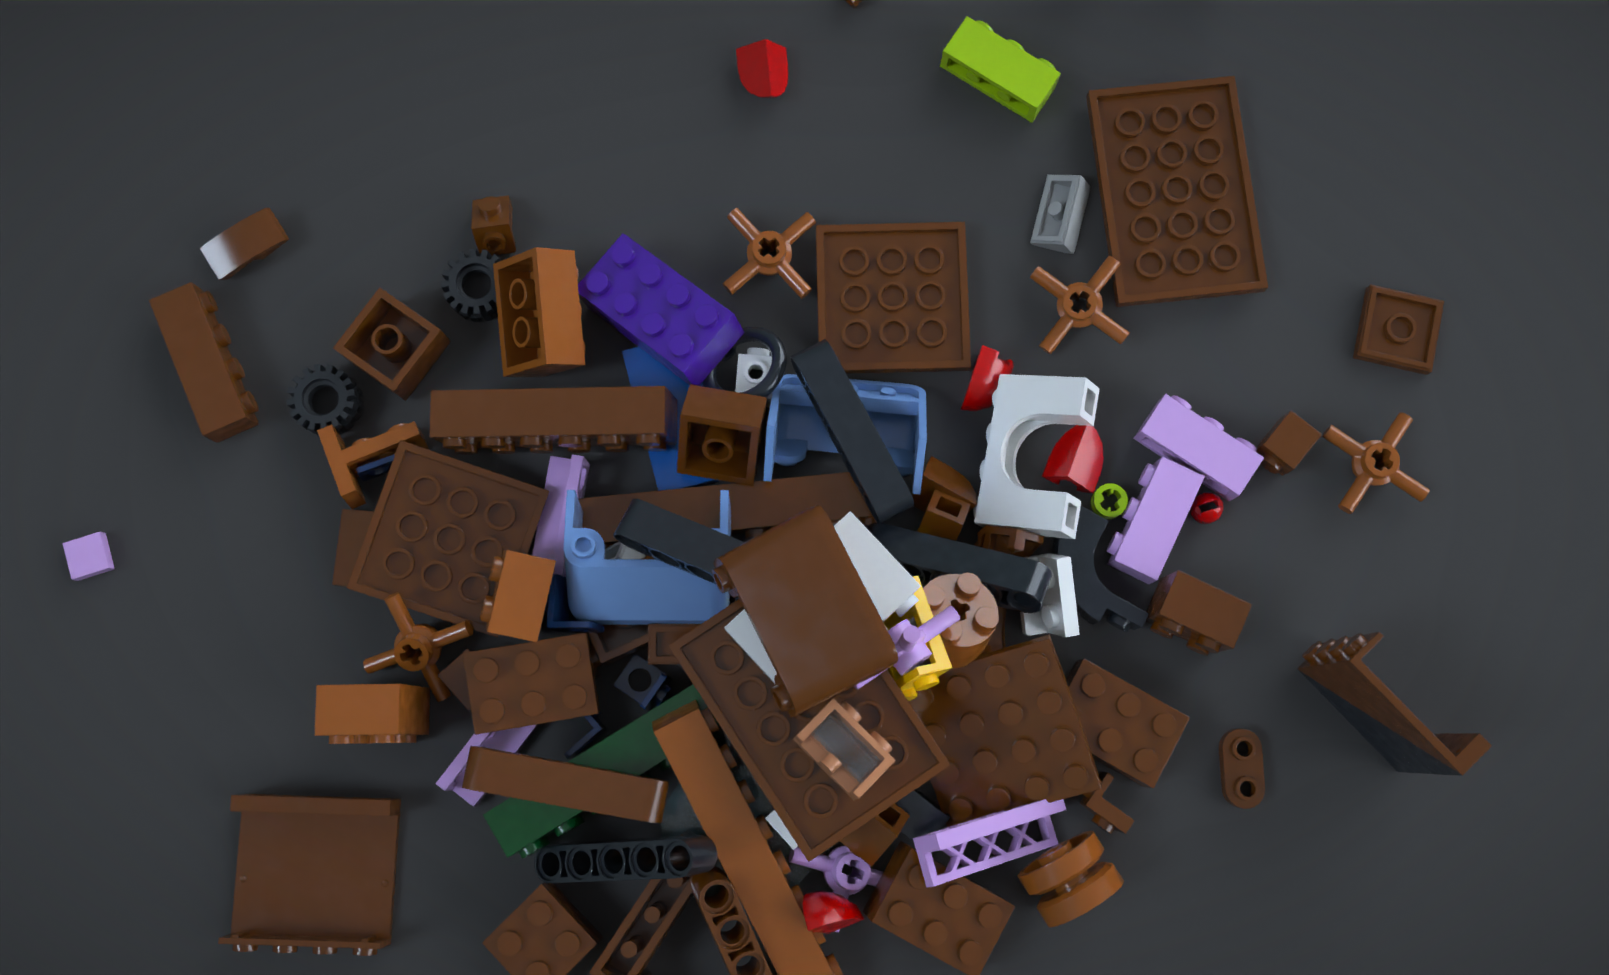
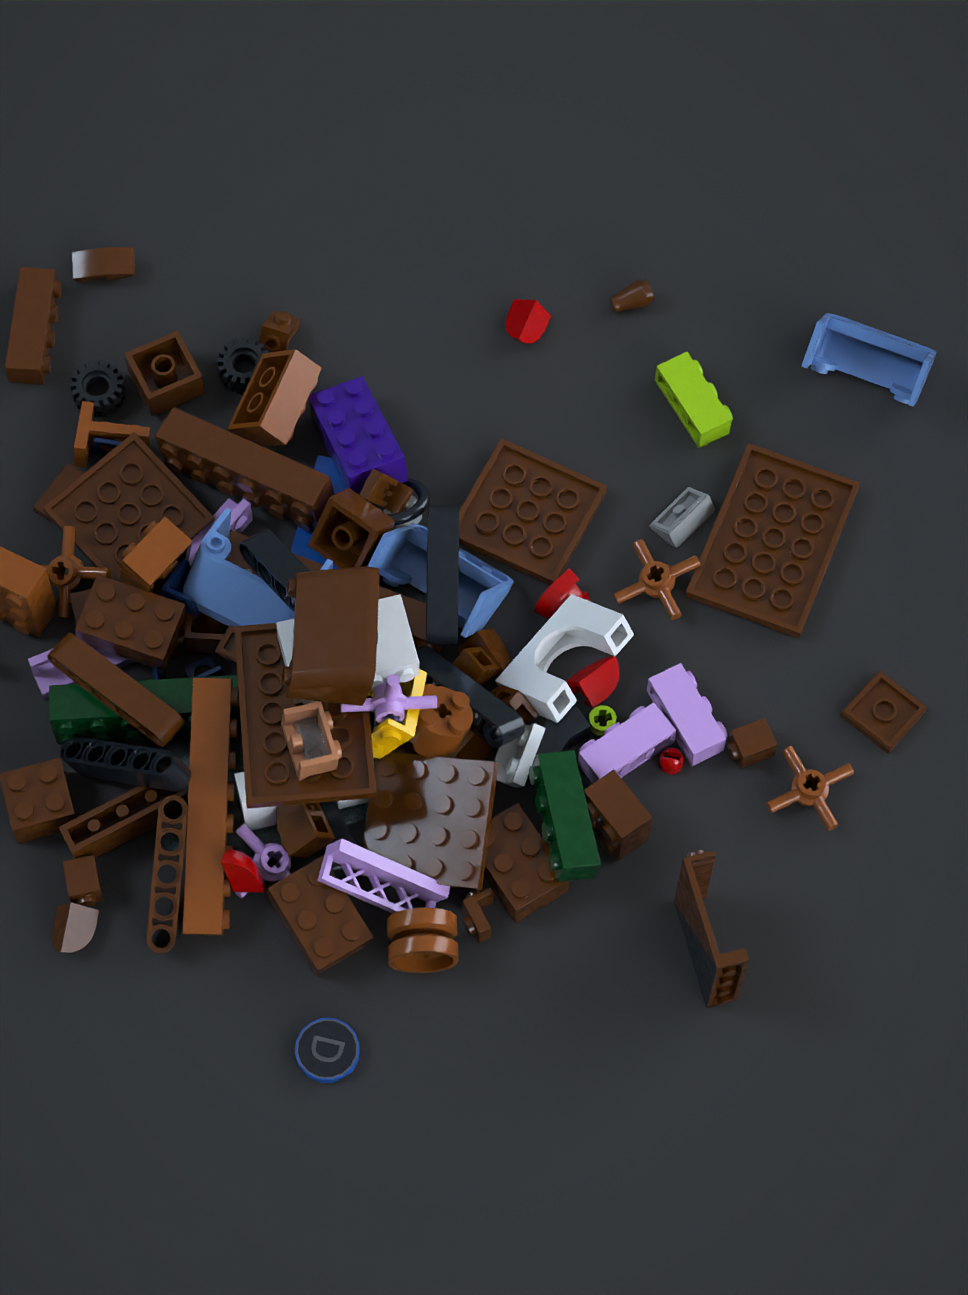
camera: 25 degrees right, 15 degrees down
(733, 363) = (386, 491): none -> reddish brown bracket
(770, 241) = (450, 436): dark orange bar -> none
(1152, 653) = (565, 816): none -> dark green brick
(1238, 768) = (593, 943): reddish brown plate -> none

